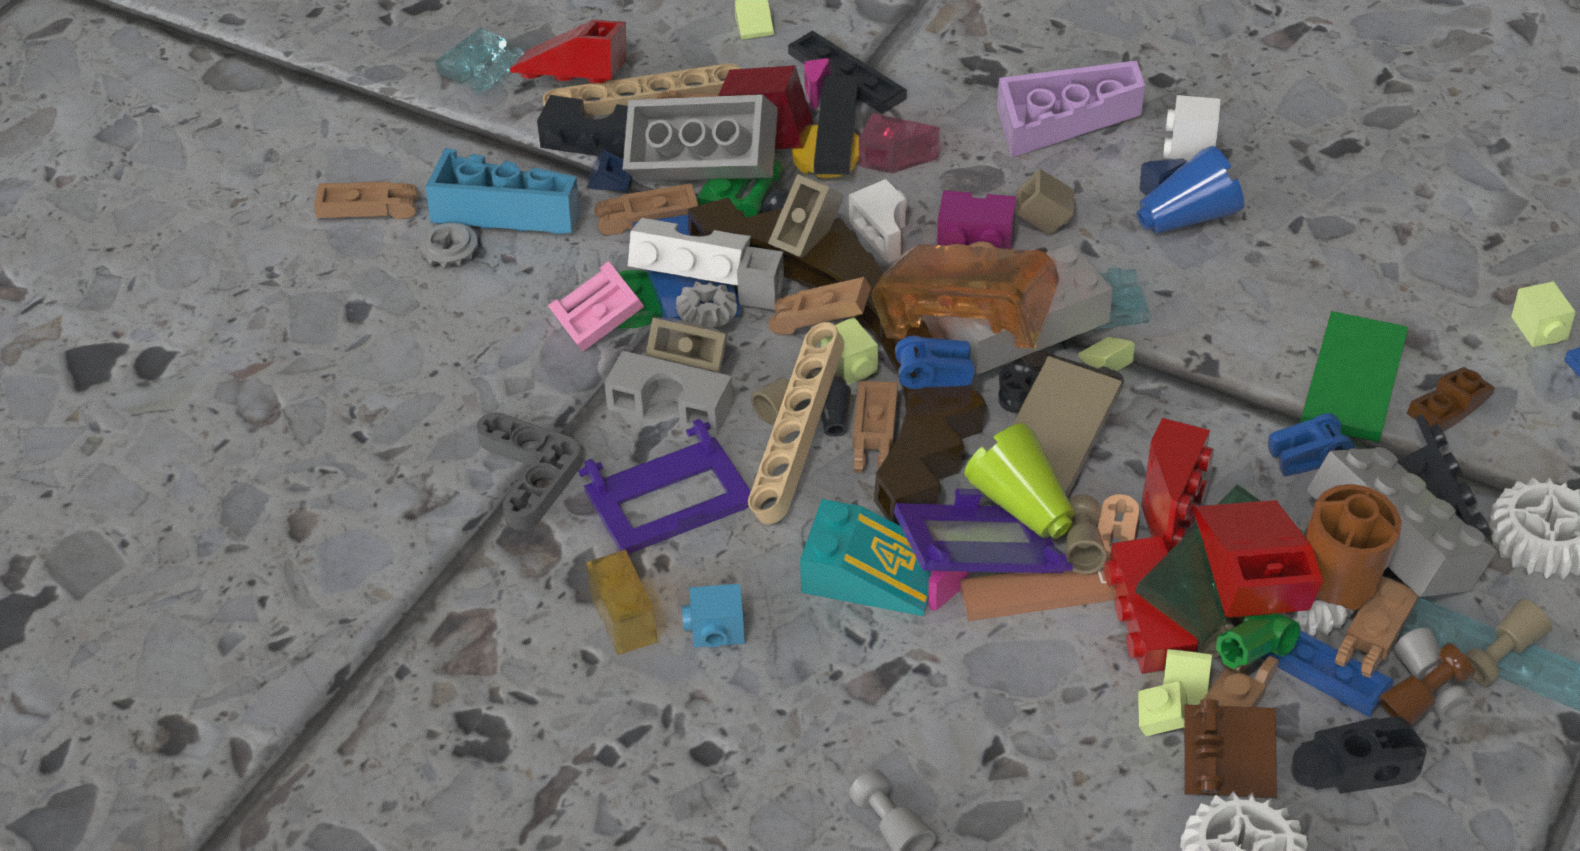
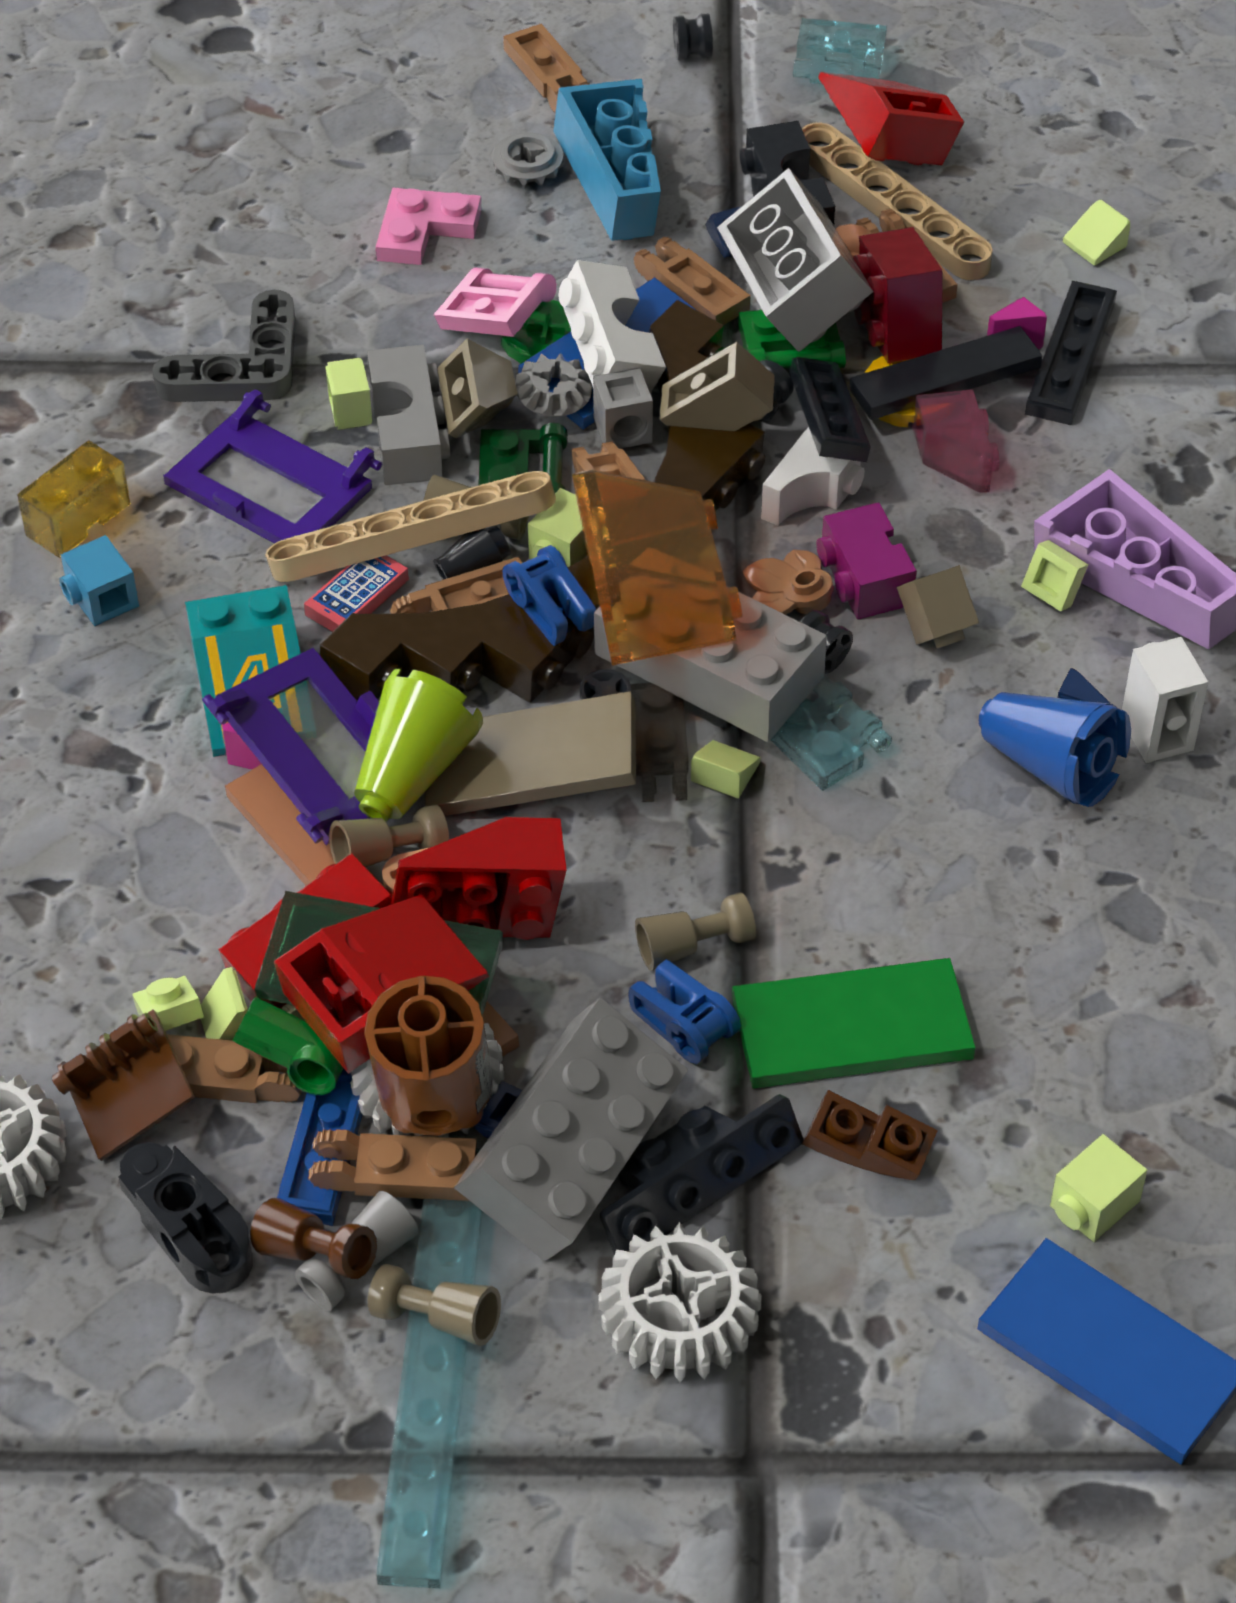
camera: 60 degrees right, 5 degrees up
(401, 118) = (692, 36): none -> black wheel
(461, 324) = (421, 213): none -> bright pink plate
(624, 414) = (349, 393): none -> yellowish green slope
(755, 364) = (507, 452): none -> dark green plate
(822, 480) = (356, 590): none -> tile
(849, 180) = (829, 409): none -> black tile
(1047, 147) = (1054, 575): none -> yellowish green plate
(1246, 428) = (676, 935): none -> dark tan piece

